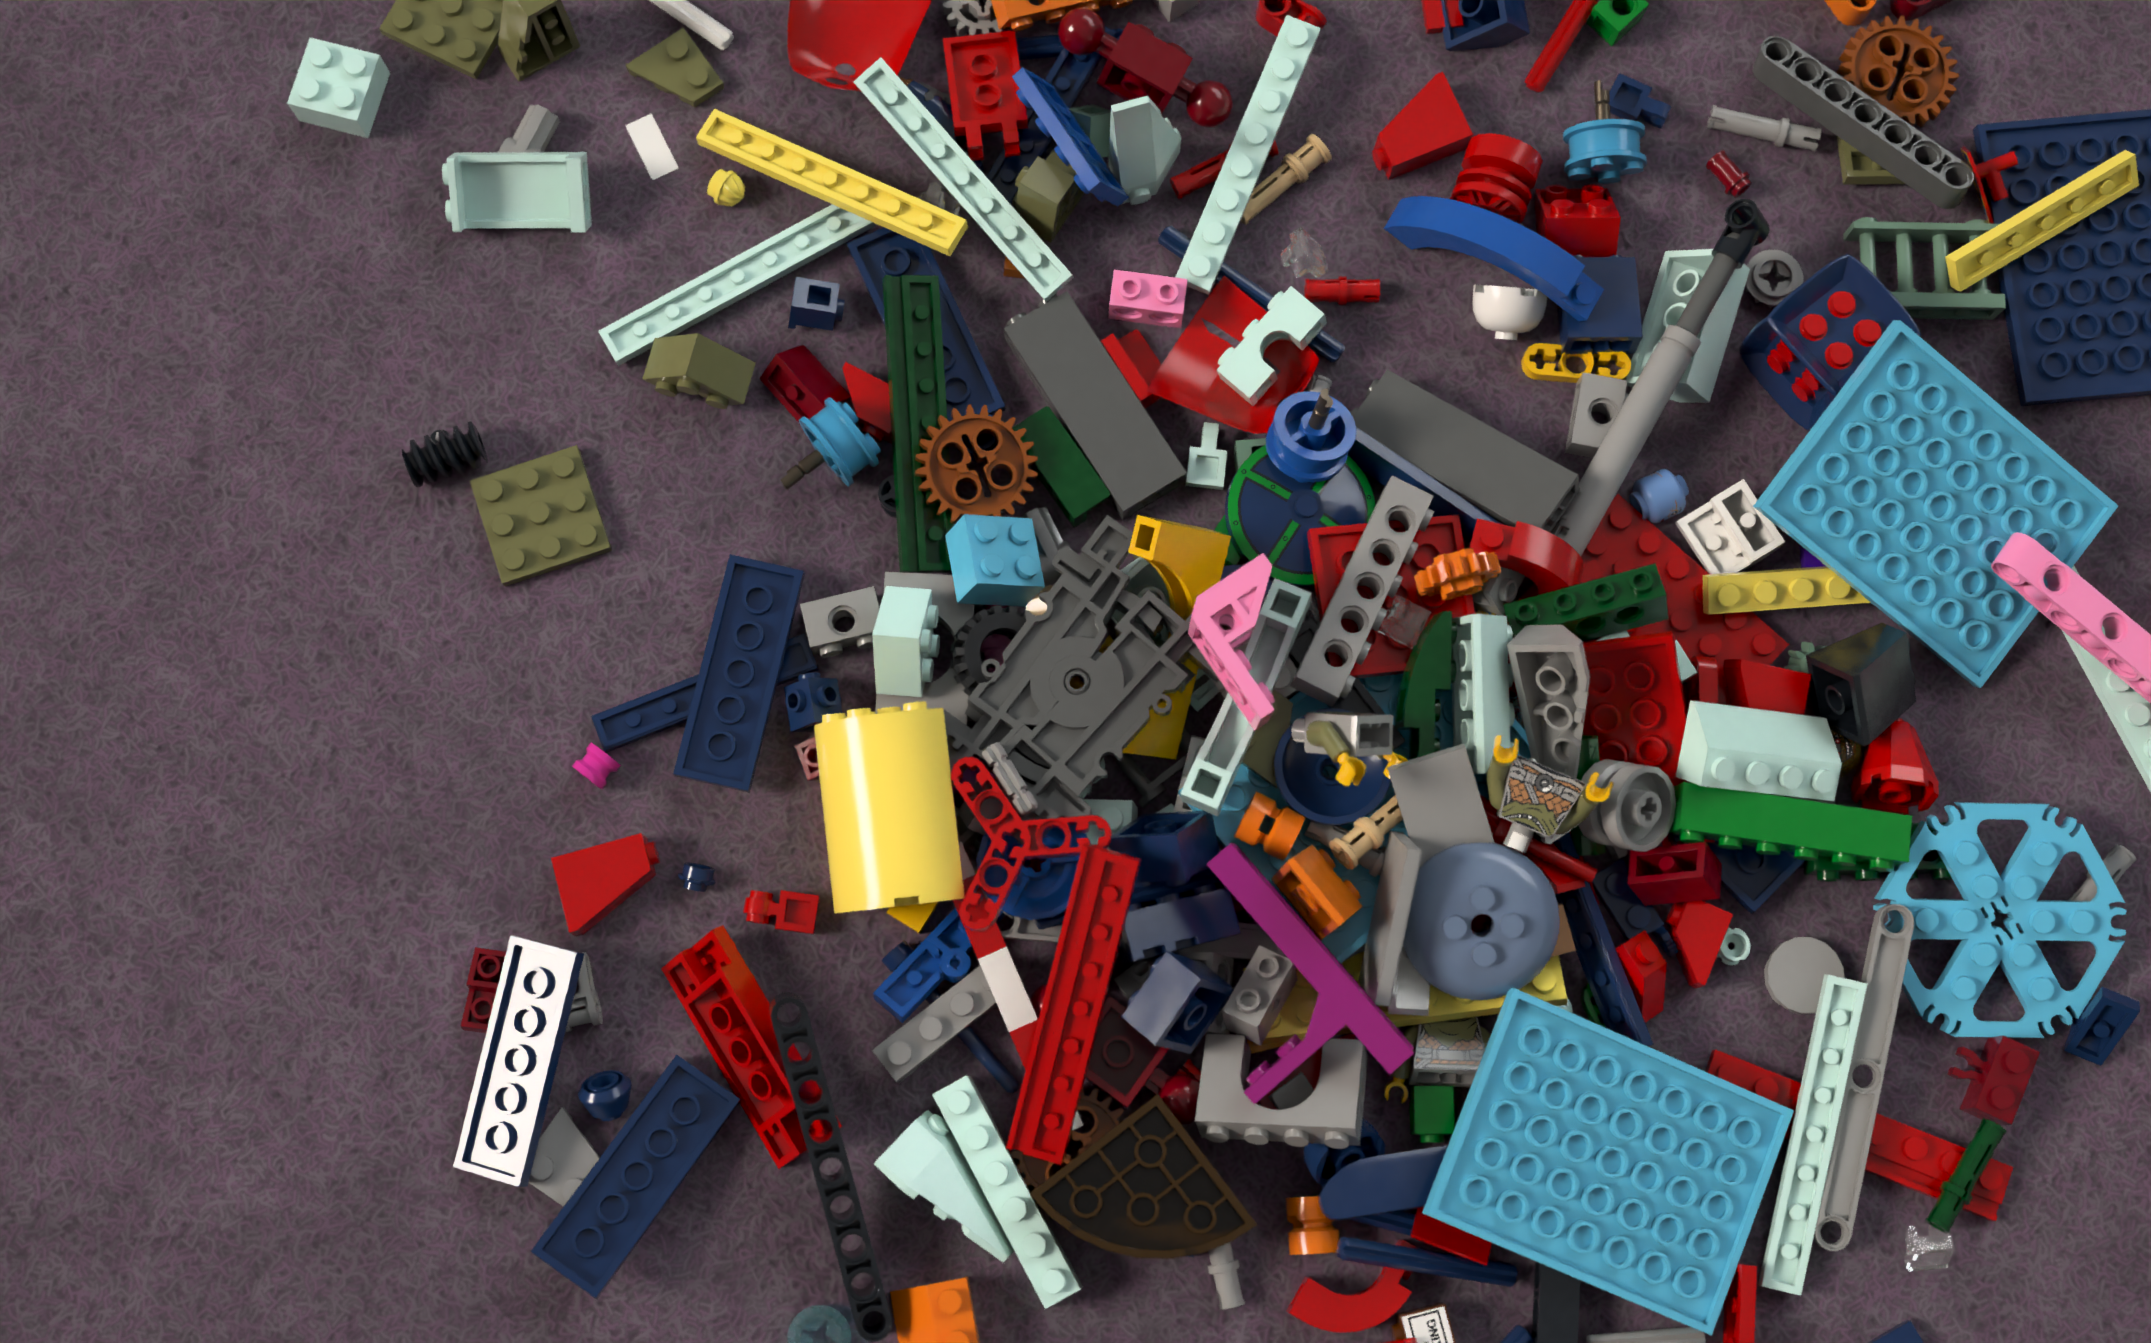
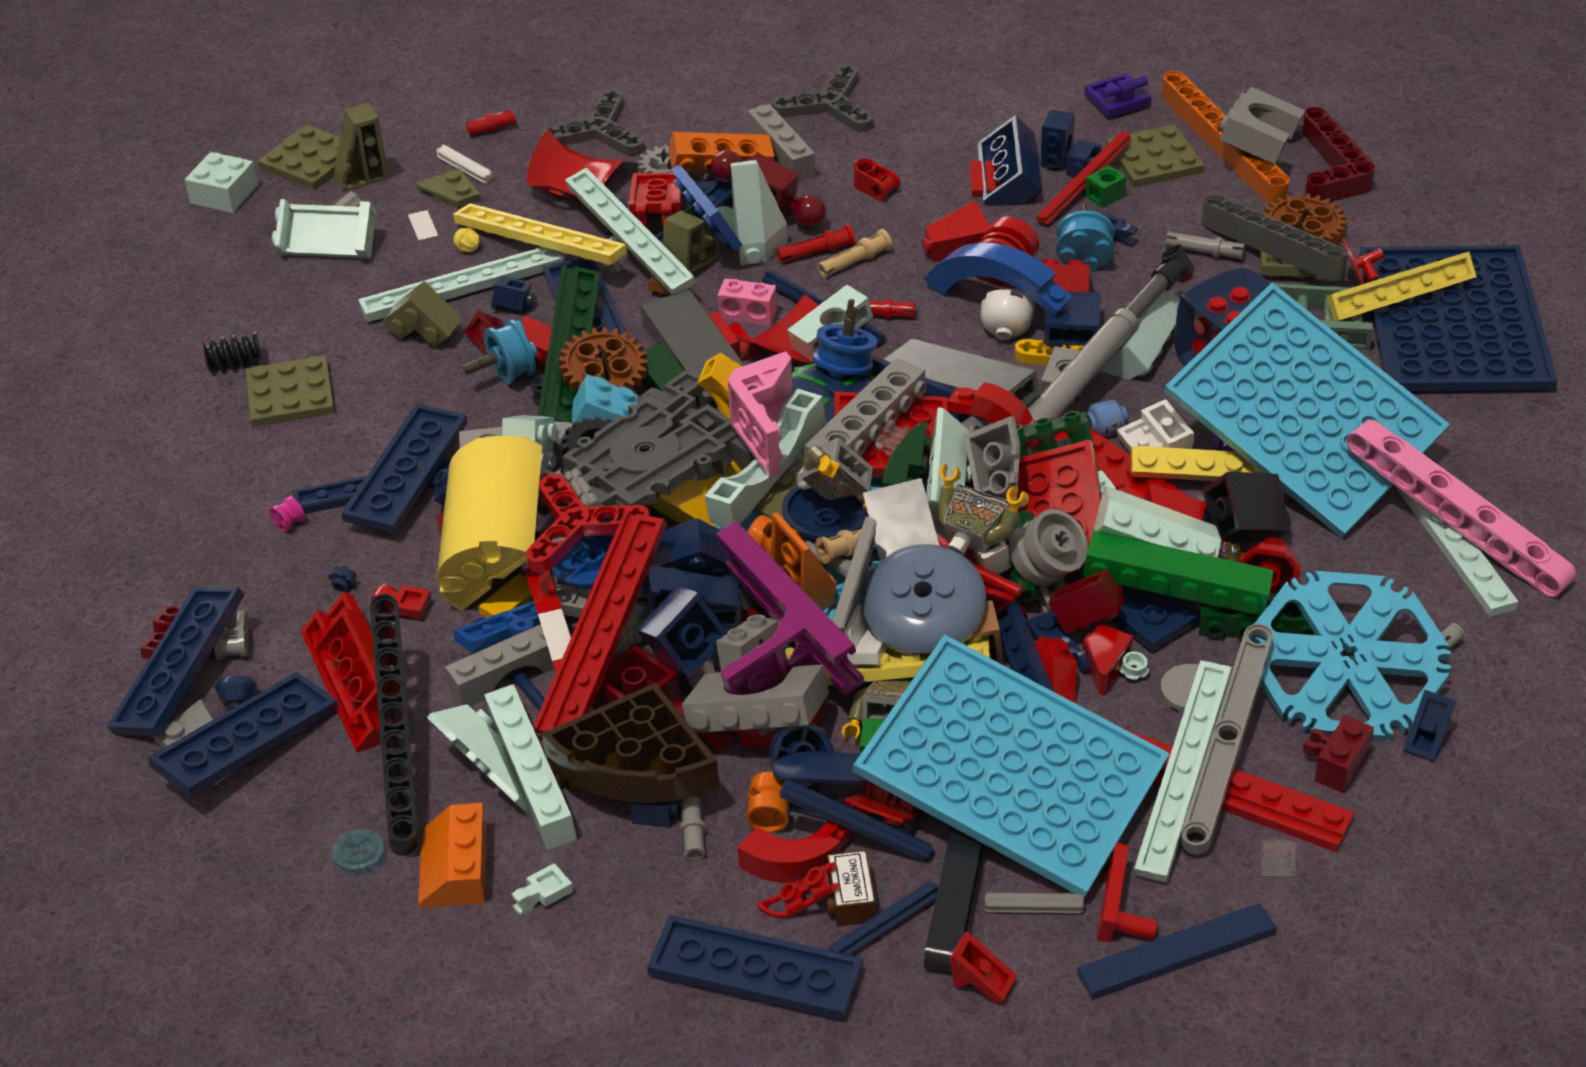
camera: 10 degrees right, 35 degrees down
(602, 878) = (274, 572): red slope -> none
(1248, 154) = (831, 232): light aqua plate -> none
(1304, 255) = (865, 284): clear tile -> none
(1457, 574) = (932, 397): orange gear -> none
(1961, 1183) = (1290, 825): dark green pin -> none

